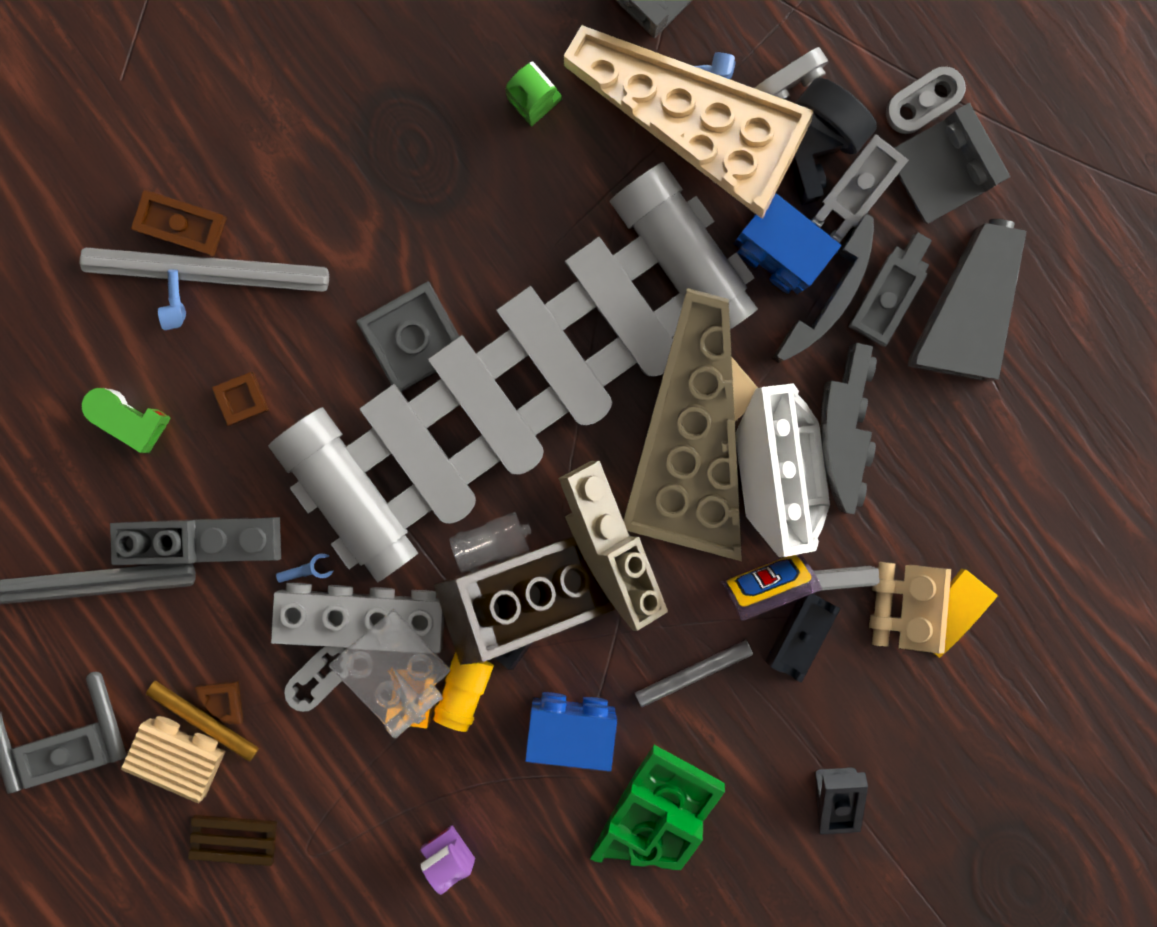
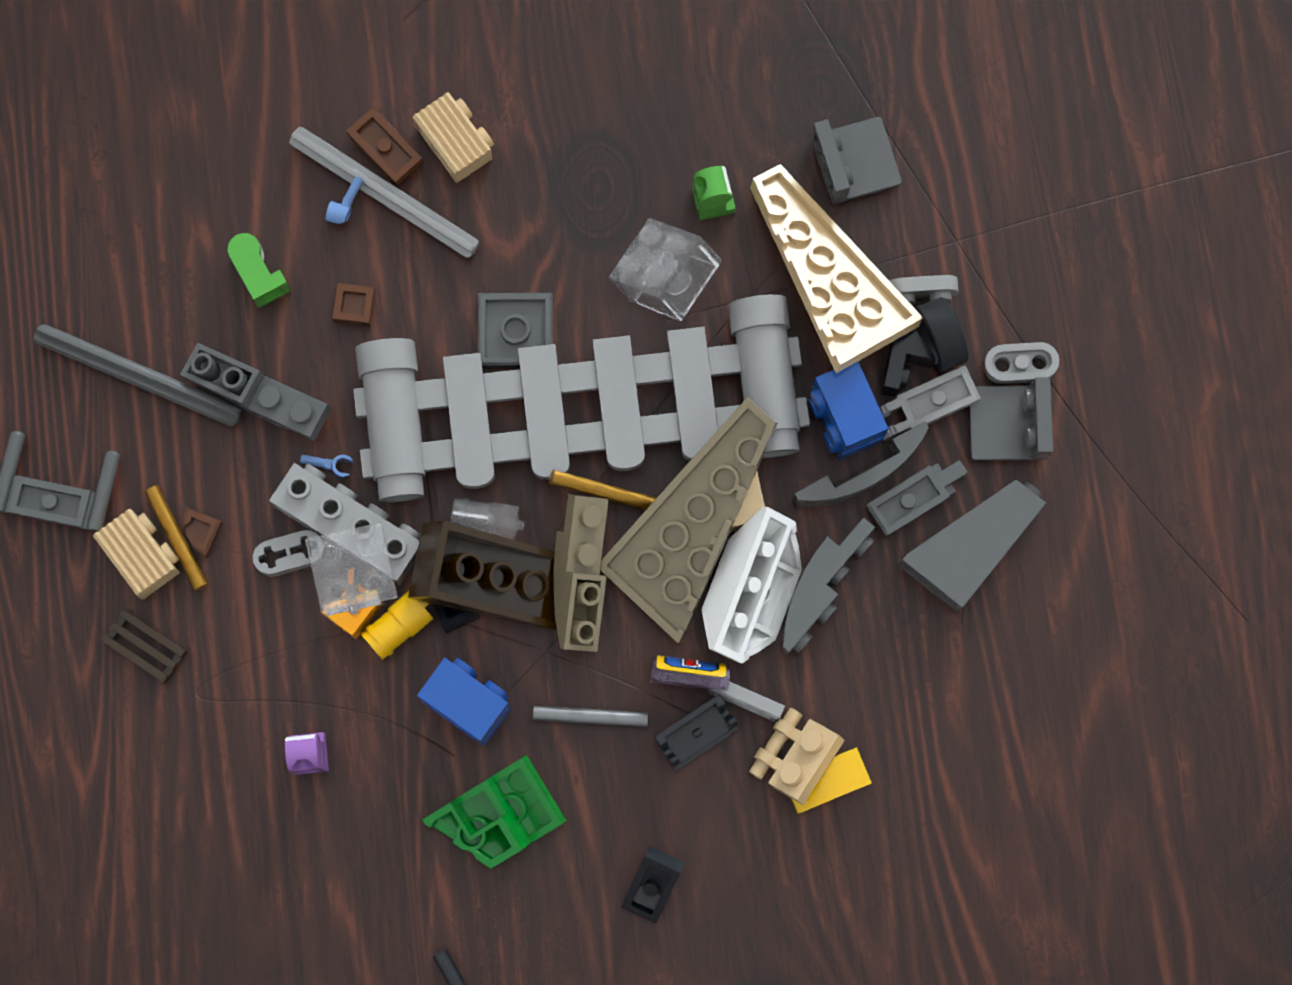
camera: 25 degrees right, 10 degrees down
(241, 175) = (453, 137): none -> tan brick
(529, 198) = (665, 269): none -> clear brick
(588, 453) = (600, 490): none -> pearl gold bar
(722, 65) = (874, 251): medium blue hand -> none

